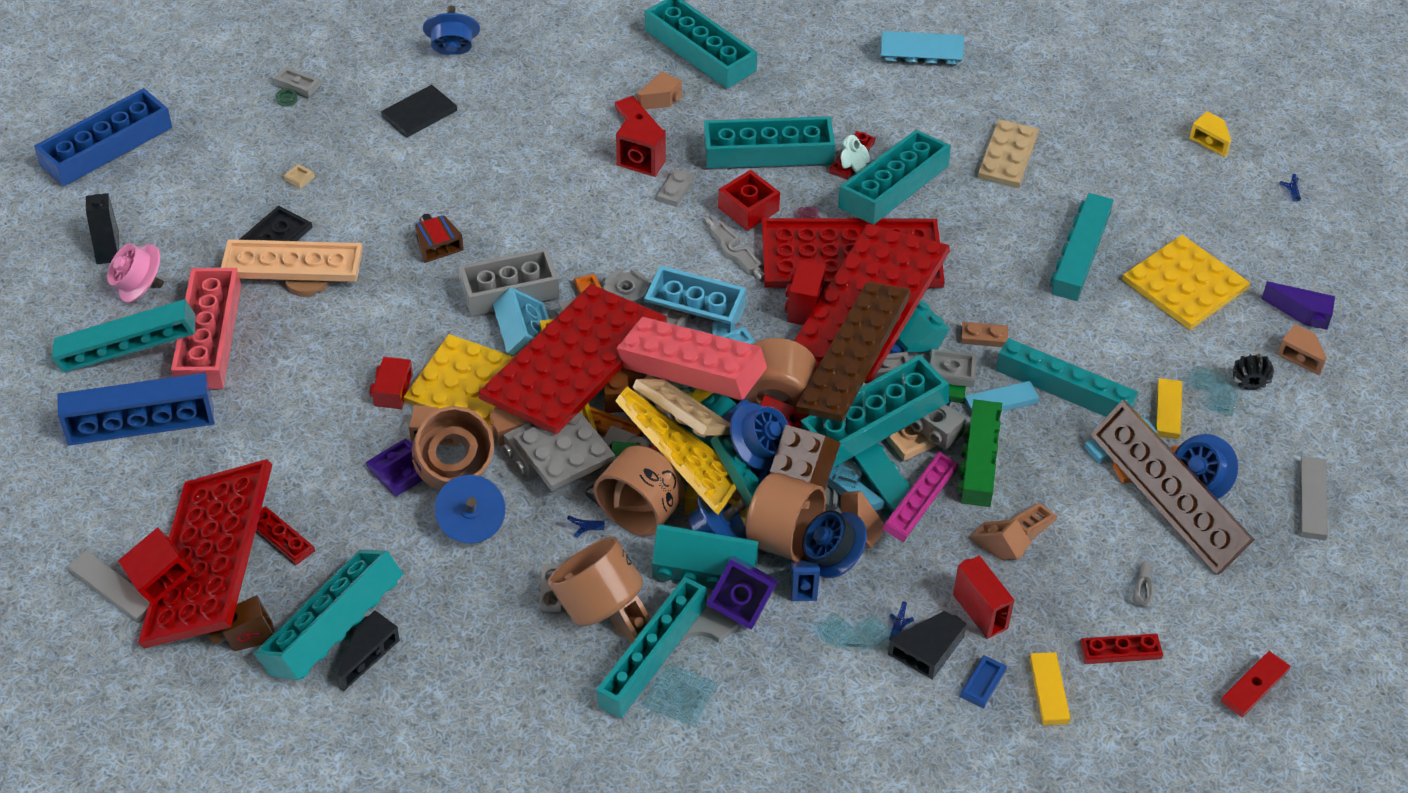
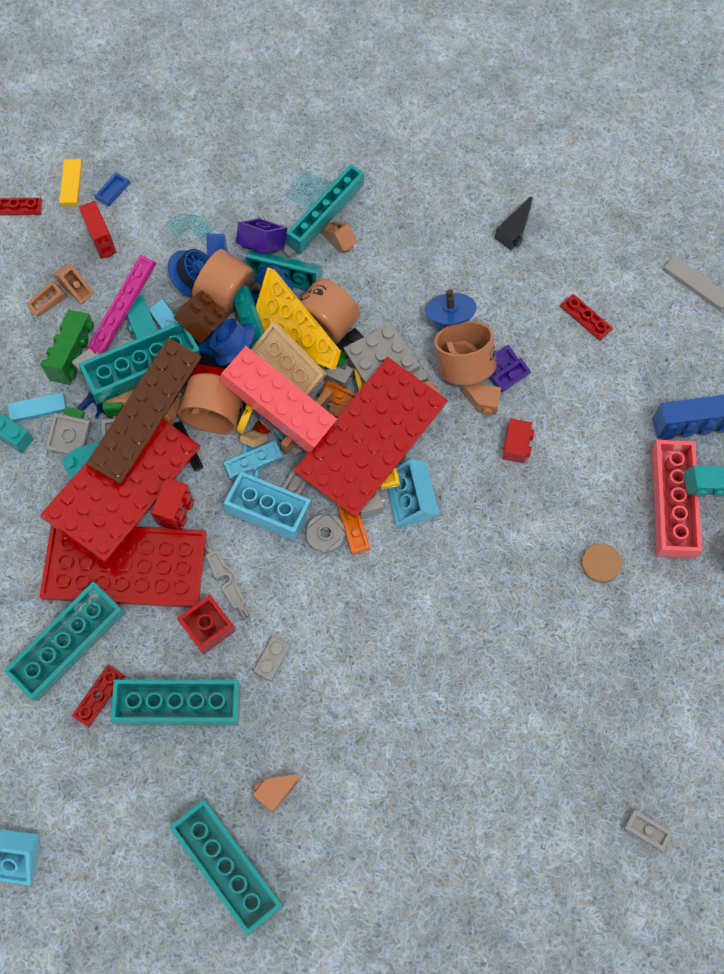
camera: 175 degrees left, 20 degrees up
(155, 566) = (669, 279): red brick -> none
(215, 536) = (634, 287): red plate -> none
(249, 626) = (598, 238): reddish brown torso -> none
(279, 226) = (638, 617): black tile -> none
(286, 97) = (655, 810): clear green tile -> none
(293, 260) = (616, 570): light nougat plate -> none
(299, 176) = (626, 693): tan tile -> none
(329, 614) = (542, 238): teal brick -> none
(419, 111) = (519, 782): black tile -> none
(437, 237) = (491, 599): reddish brown torso -> none
(451, 32) = (492, 883): blue piece -> none
(457, 375) = (459, 446): yellow plate -> none
(489, 279) = (426, 536): light grey brick -> none
(548, 599) = (391, 262): light grey leg -> none
(586, 525) = (369, 313): clear blue bar -> none
(596, 582) = (377, 238): nougat piece -> none
(633, 110) = (294, 741): red tile -> none
(640, 147) = (300, 695): red brick -> none
(808, 212) = (158, 618): clear pink plate -> none
(854, 154) = (97, 681): light aqua plate -> none
(857, 503) = (168, 291): nougat slope -> none
(899, 622) = (159, 228): clear blue bar -> none
(928, 643) = (141, 210): black slope -> none
(984, 334) = (32, 472): nougat plate -> none

